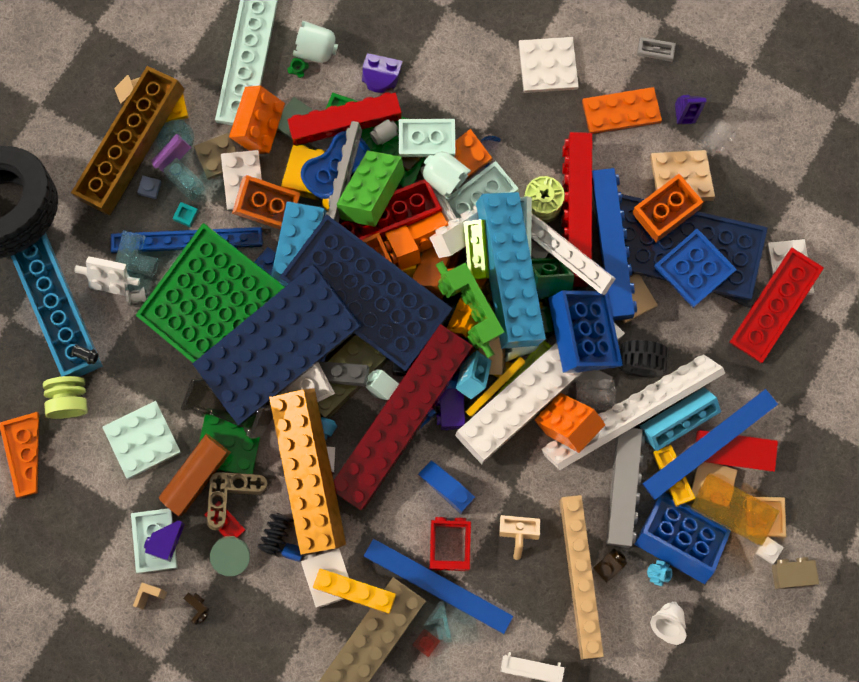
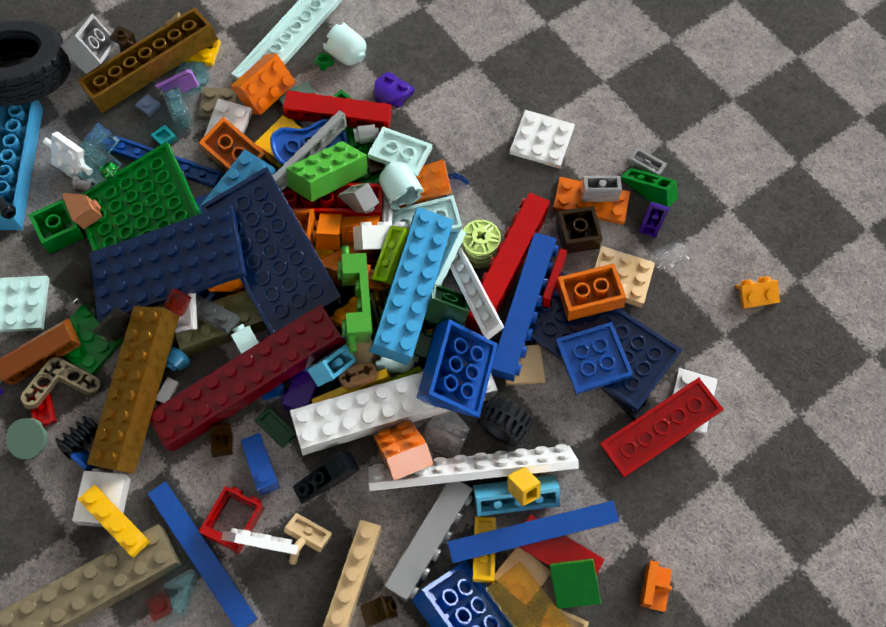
camera: 25 degrees right, 10 degrees down
(62, 149) = (88, 43): none -> light grey brick
(88, 126) = (123, 37): none -> dark brown bracket
(138, 349) = (55, 226): none -> green brick
(157, 323) = (82, 209): none -> nougat slope
(159, 273) = (108, 170): none -> green plate
(309, 377) = (177, 302): none -> clear red plate
(403, 482) = (222, 440): none -> dark brown bracket
(417, 203) = (360, 198): none -> light grey slope
(442, 449) = (275, 427): none -> dark green tile
(489, 553) = (259, 540): none -> white plate
(503, 376) = (358, 375): none -> medium nougat beam
(510, 474) = (326, 476): none -> black slope
(625, 147) = (578, 229): none -> dark brown brick
(627, 206) = (552, 282): none -> red tile
(630, 99) = (600, 188): none -> light grey brick
(671, 74) = (651, 186): none -> green slope
(688, 409) = (524, 486): none -> yellow brick
(762, 471) = (575, 583): none -> green tile
(807, 140) = (758, 292): none -> light orange bracket
(825, 444) = (655, 587): none -> orange panel

